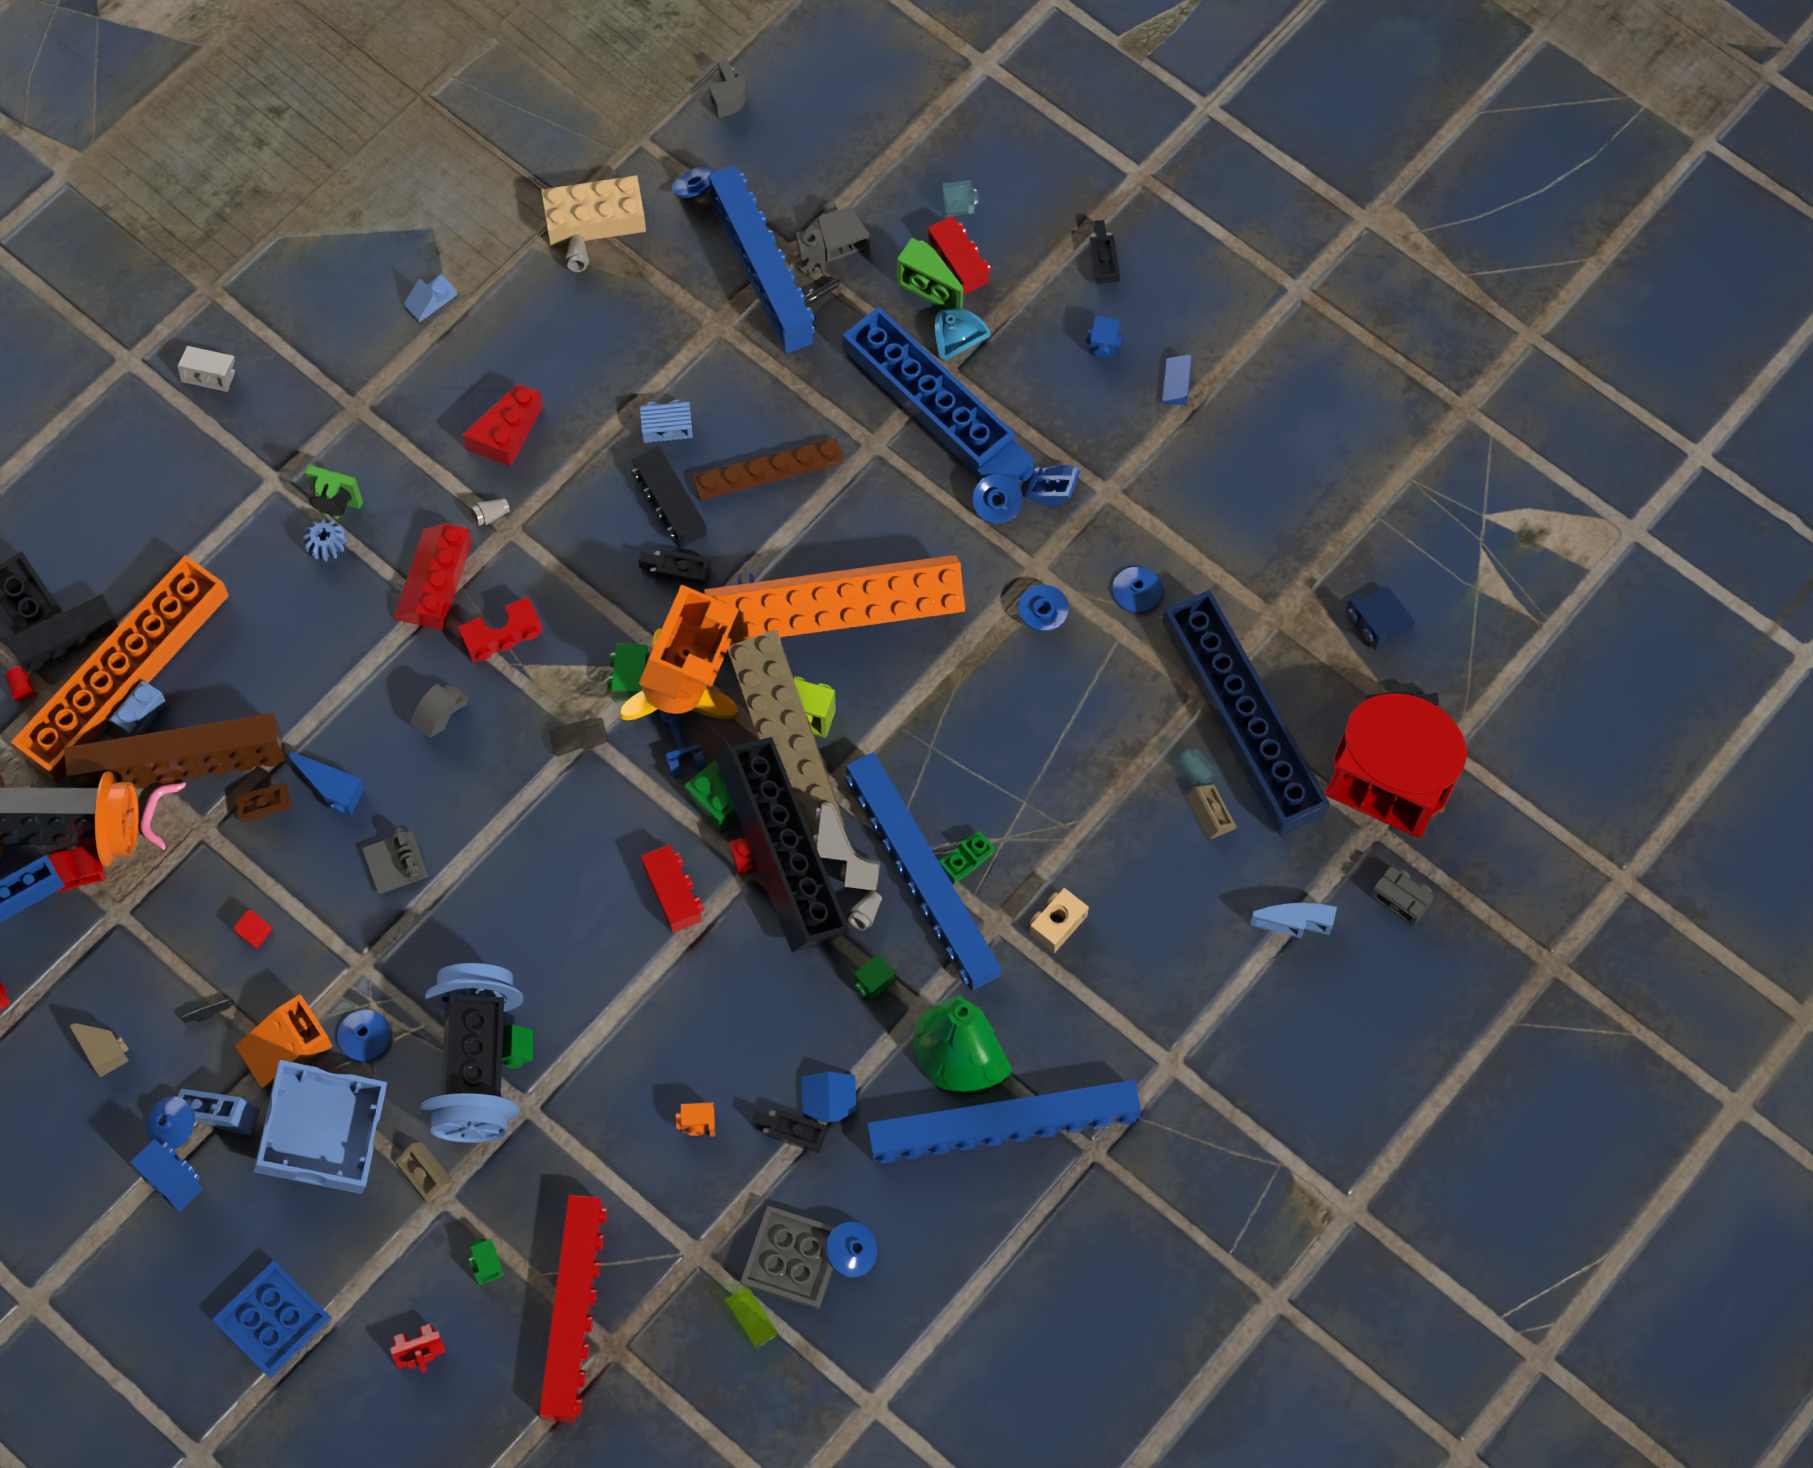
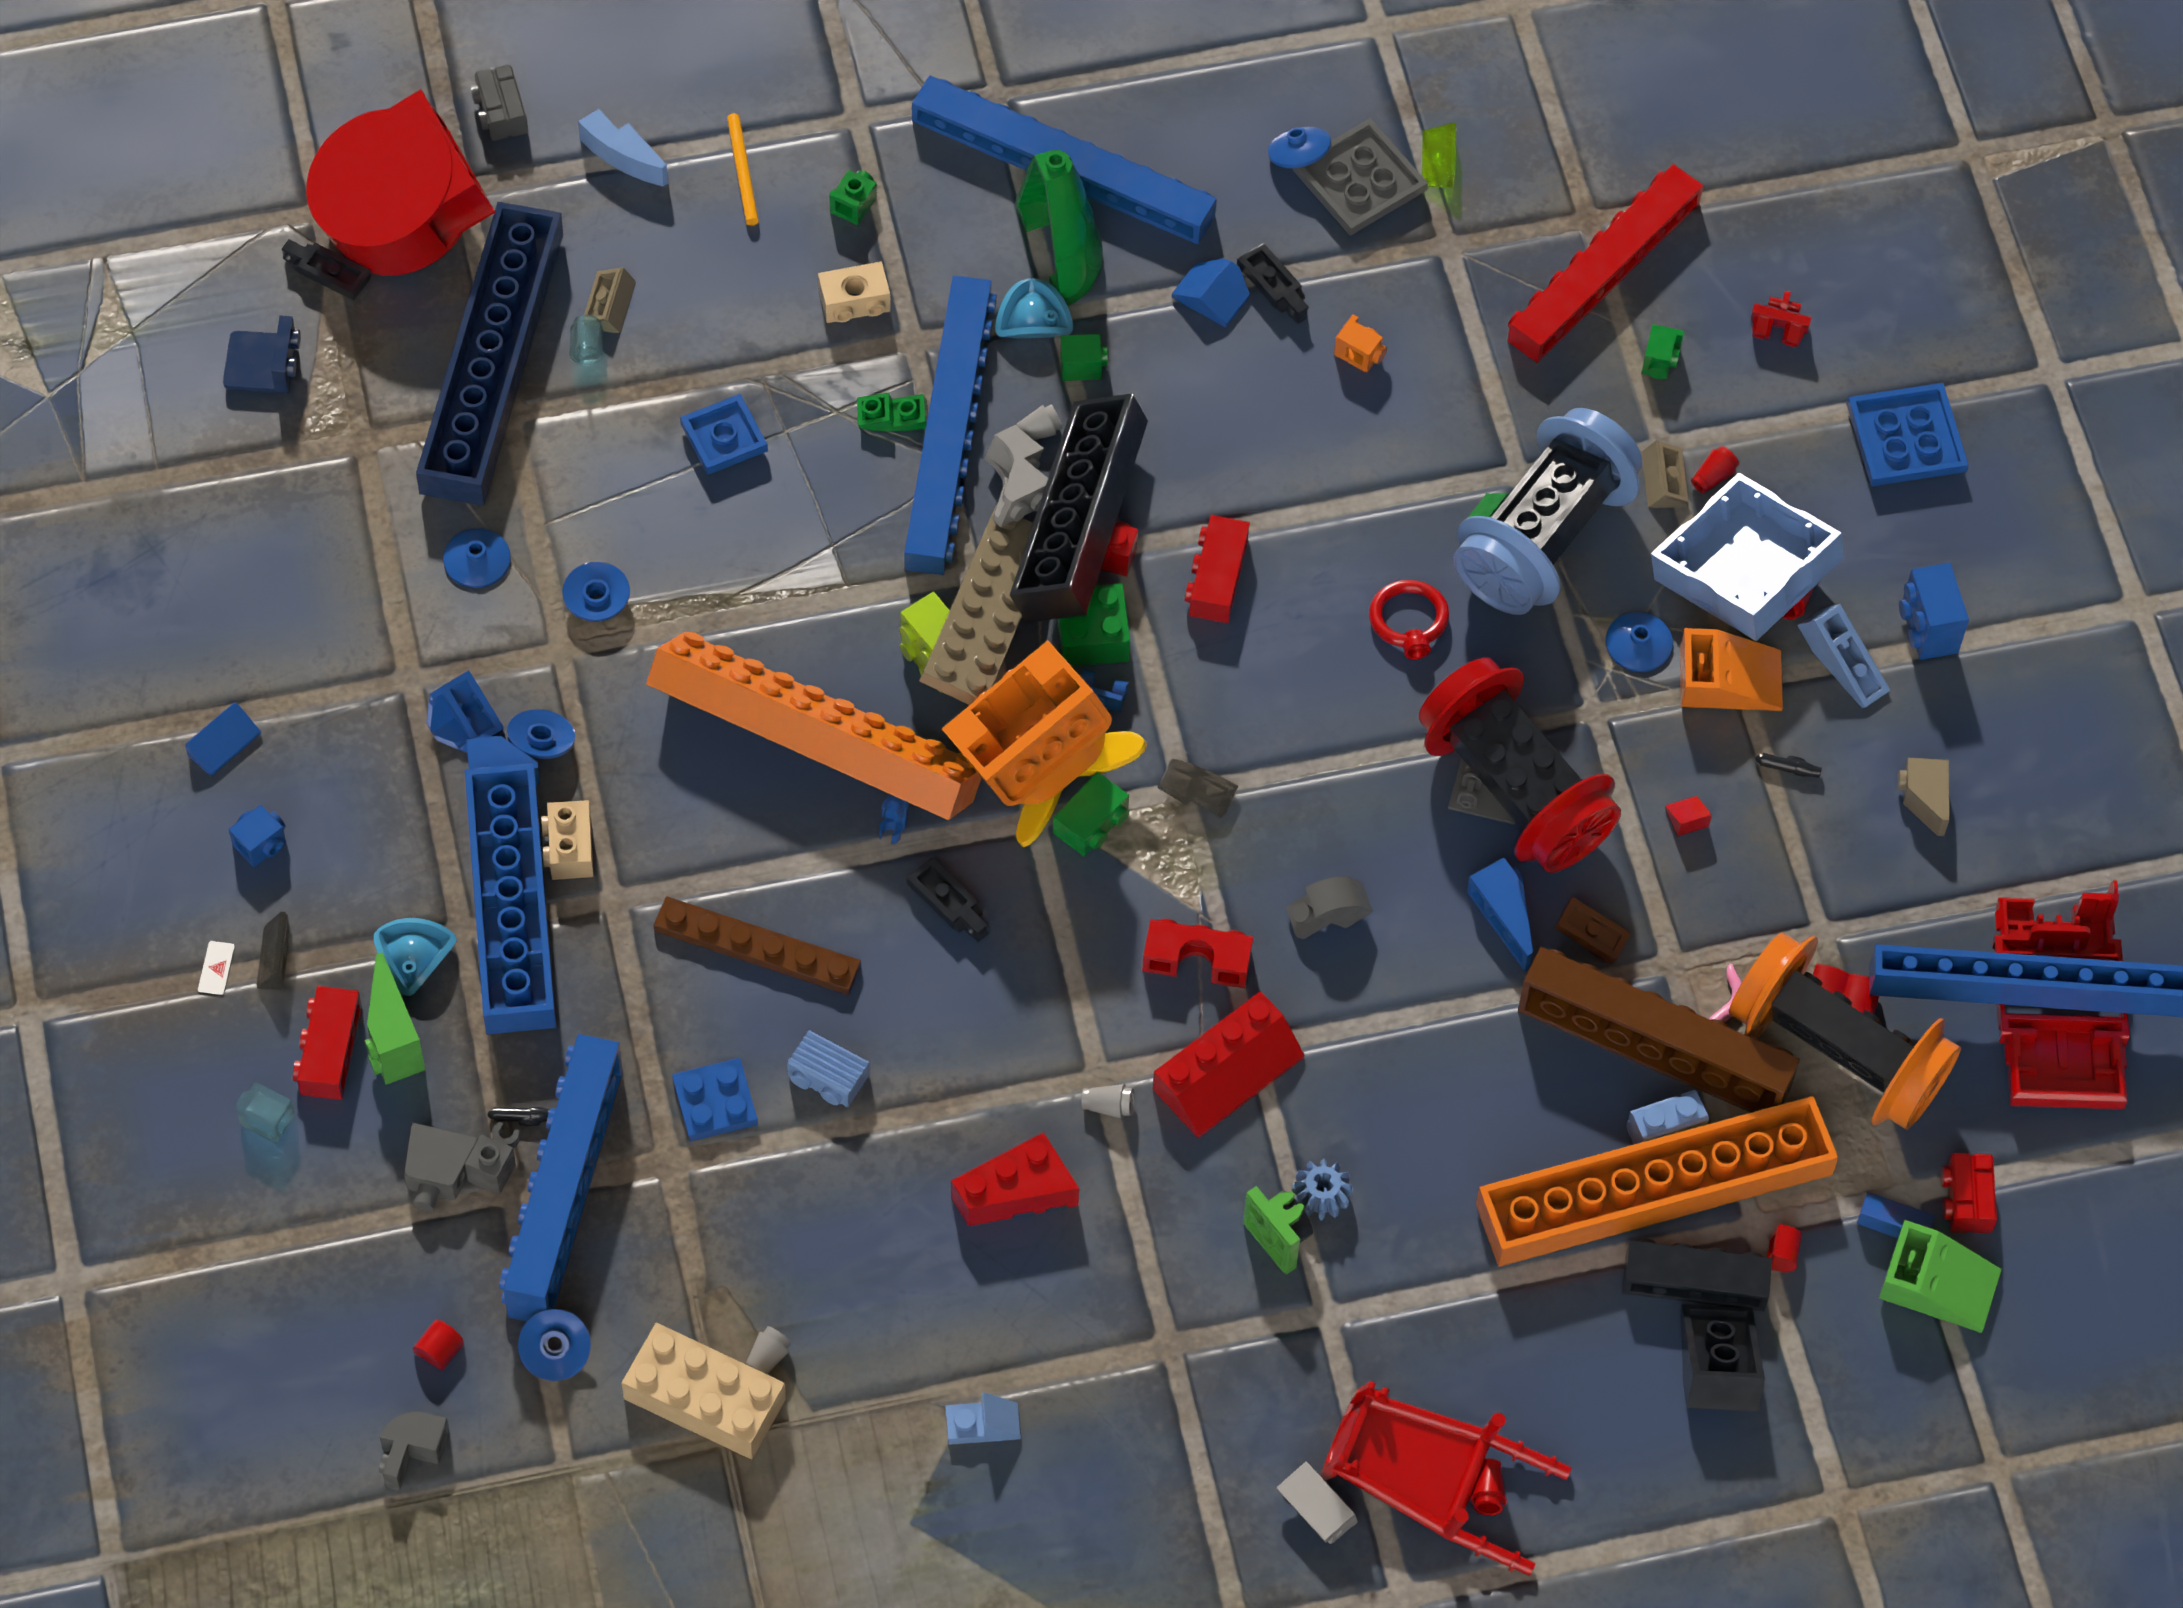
camera: 145 degrees left, 5 degrees down
(113, 438) = (1489, 1489): none -> red cone
(156, 418) = (1425, 1464): none -> red piece
(178, 1125) = (1889, 680): blue dish -> none
(370, 857) = (1554, 807): none -> brick
(390, 1196) = (1715, 469): none -> red cone
(508, 927) = (1415, 641): none -> red piece
(669, 497) = (895, 979): black brick -> none
(719, 369) = (714, 1099): none -> blue plate
(759, 148) = (439, 1344): none -> red brick
(926, 451) = (569, 840): none -> tan brick
(929, 985) = (1033, 311): none -> dark azure hat
(1034, 285) = (274, 953): none -> clear smoke slope
(1057, 765) = (723, 434): none -> blue plate
(1061, 262) = (216, 967): none -> white sticker
(1104, 255) = (165, 934): black hinge -> none
(1115, 982) = (853, 196): none -> green brick
(1210, 966) = (742, 169): none -> light orange bar

